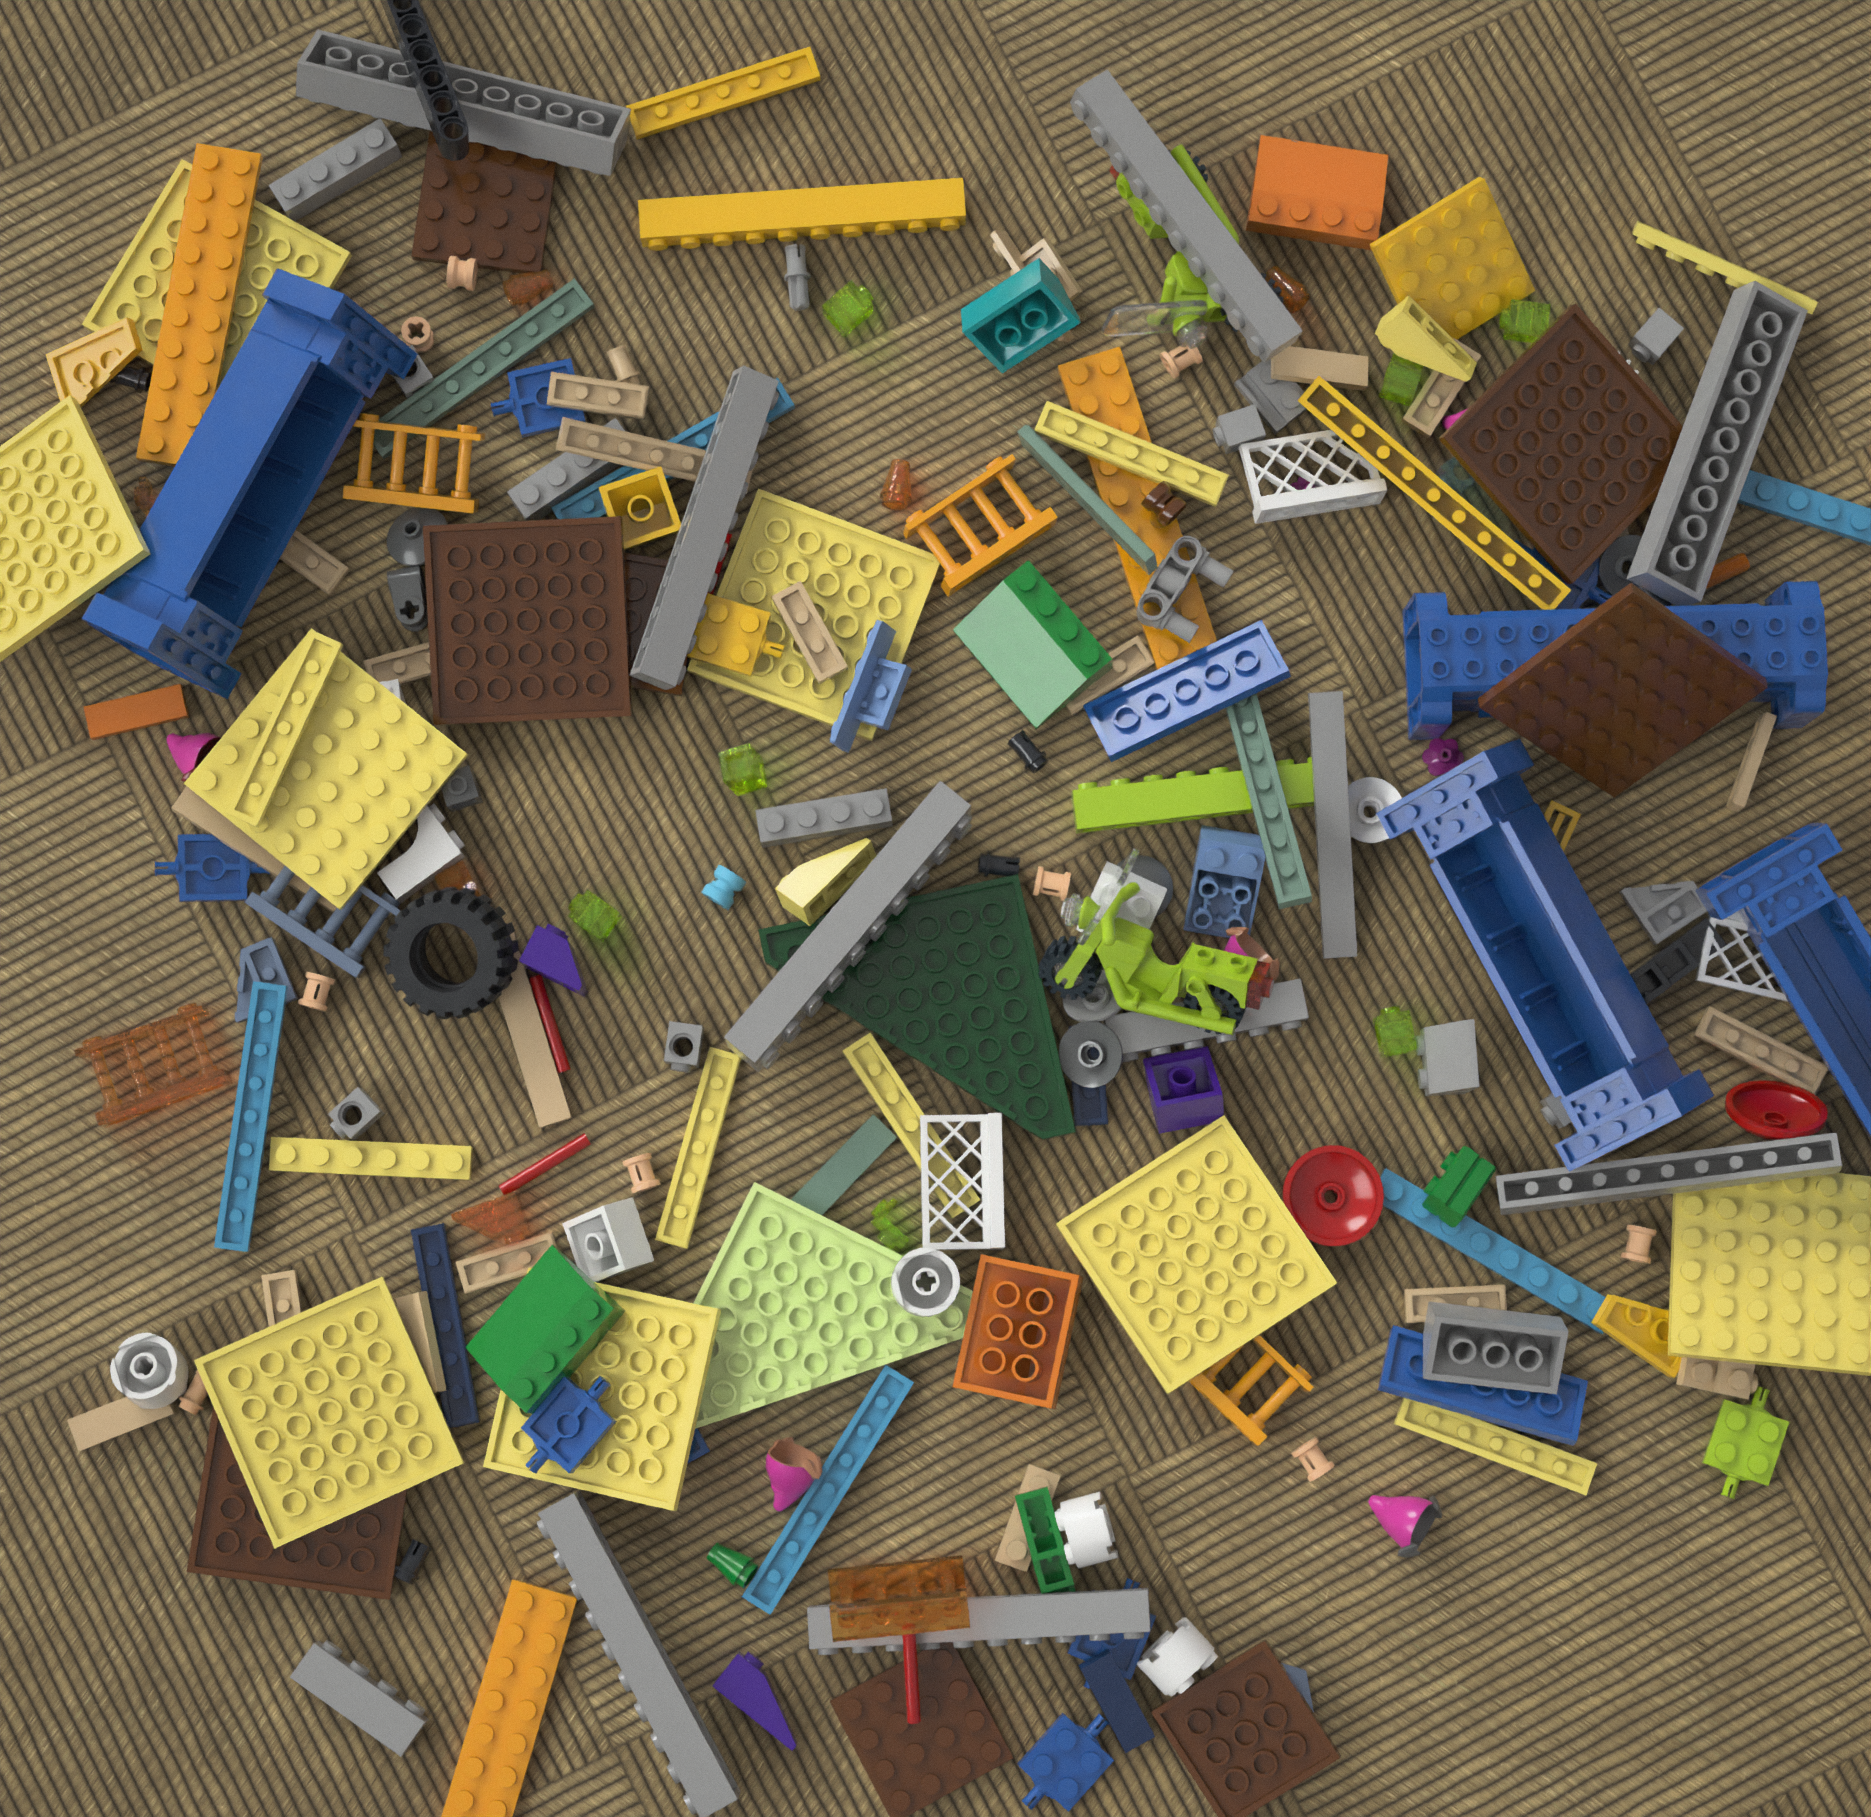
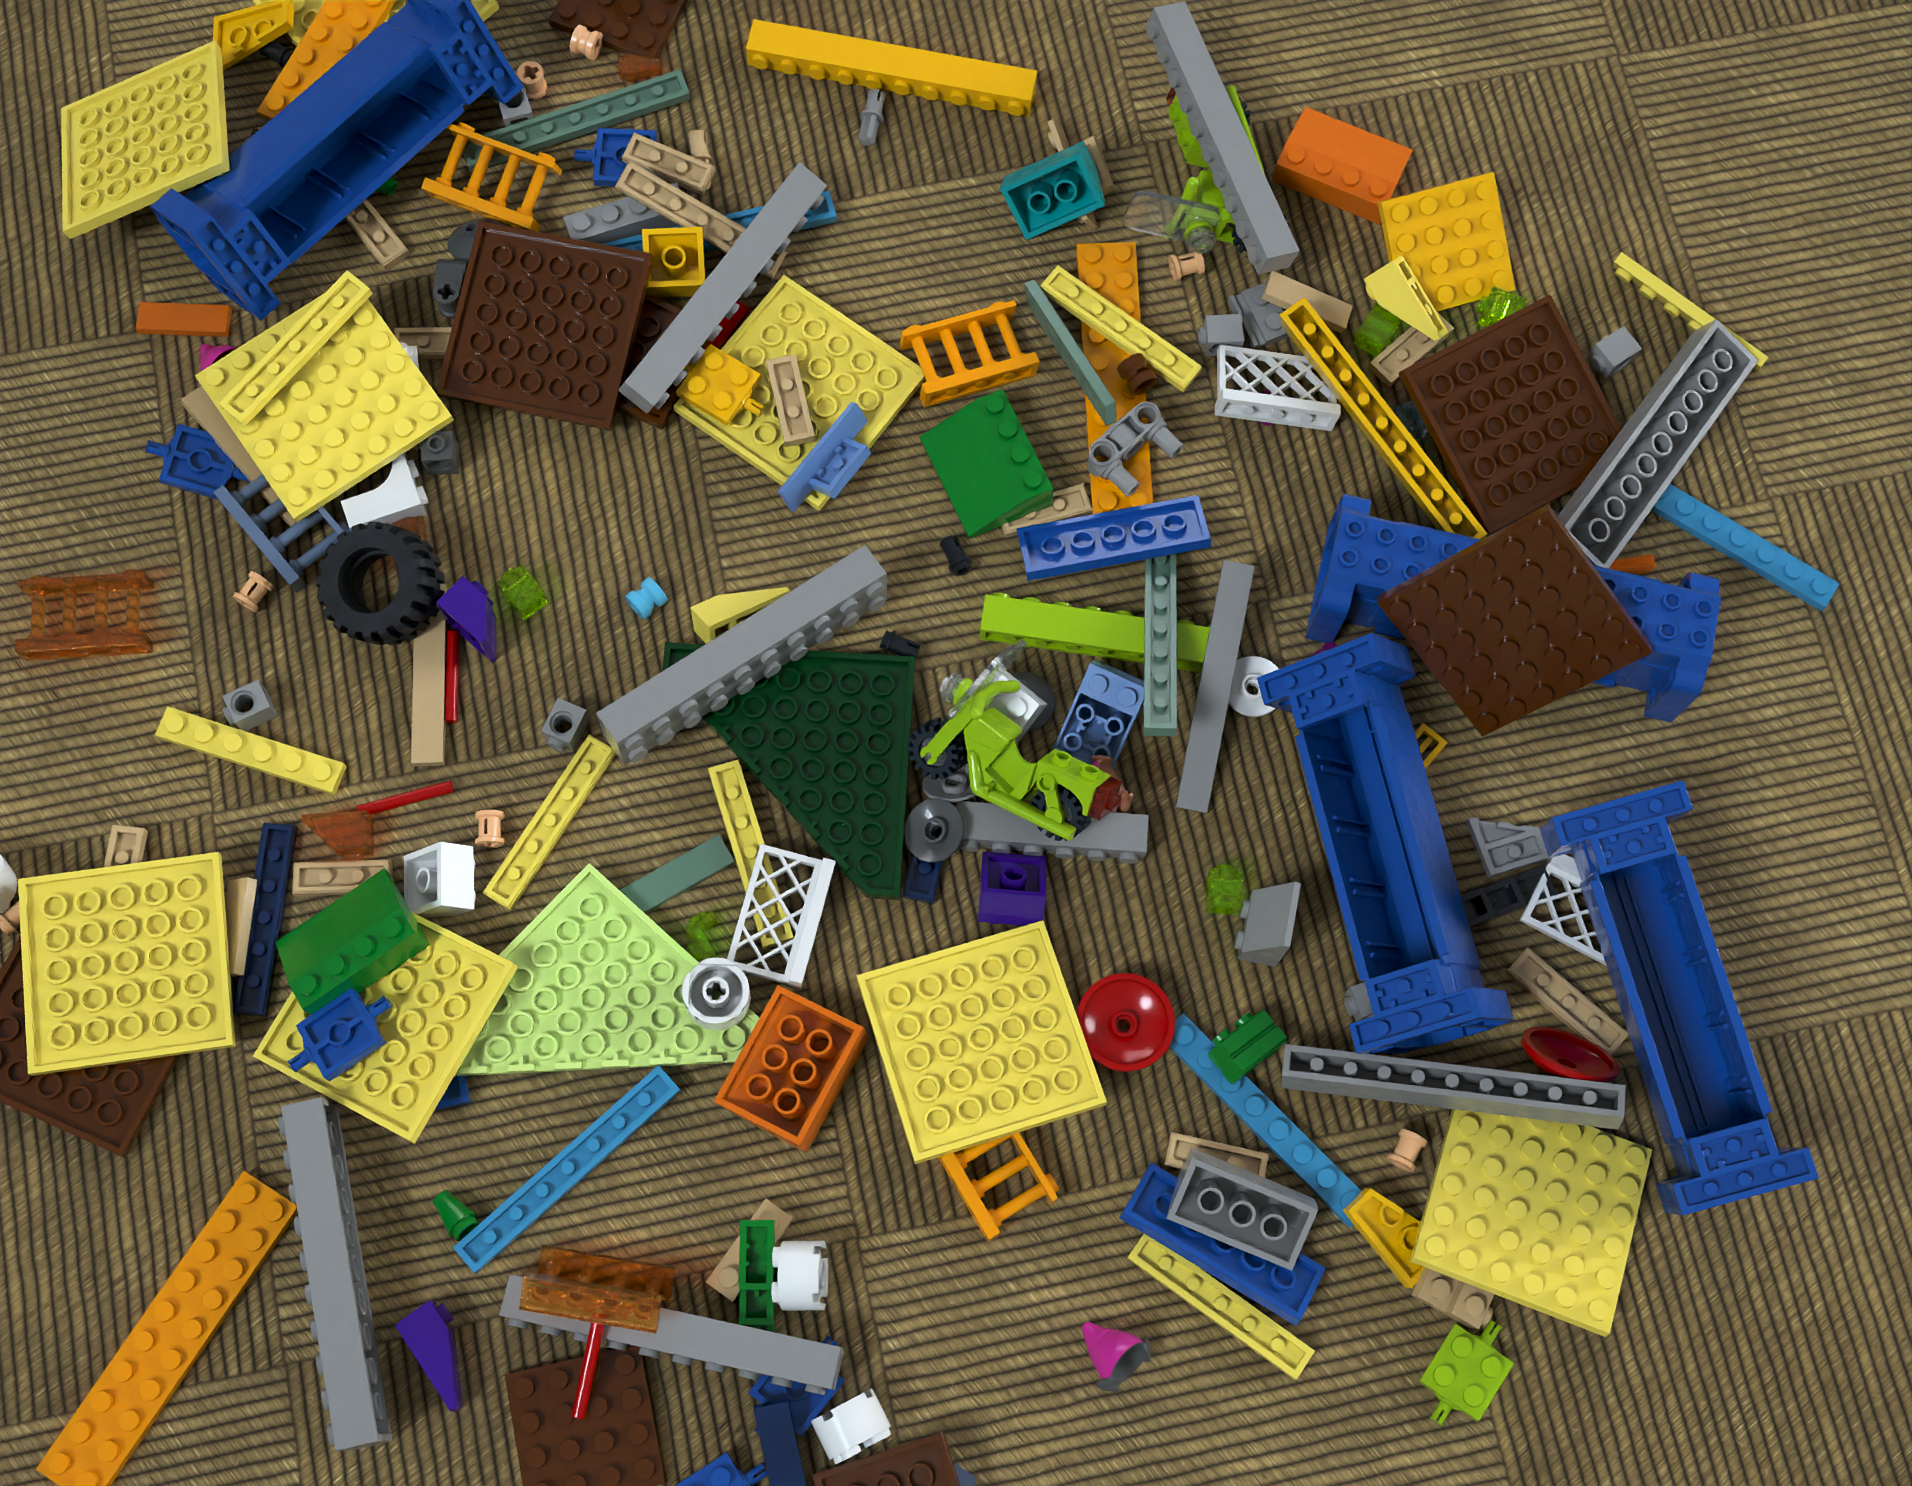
camera: 15 degrees right, 10 degrees down
(251, 1116) = (153, 682): dark azure plate -> none
(261, 964) = (209, 570): sand blue wing -> none
(359, 1697) = (61, 1242): light grey brick -> none
(412, 1562) = (156, 1128): black pin -> none
(743, 769) = (694, 500): clear neon green brick -> none
(791, 1471) = (536, 1140): hat -> none
(824, 818) = (753, 561): light grey brick -> none
(848, 308) = (907, 151): clear neon green brick -> none
(897, 486) = (905, 307): clear orange cone -> none
(1051, 883) = (939, 670): light nougat bush -> none
(1293, 292) = (1301, 234): clear orange cone -> none
(1313, 1459) = (1039, 1269): light nougat bush -> none
(1751, 761) = (1617, 736): tan tile -> none

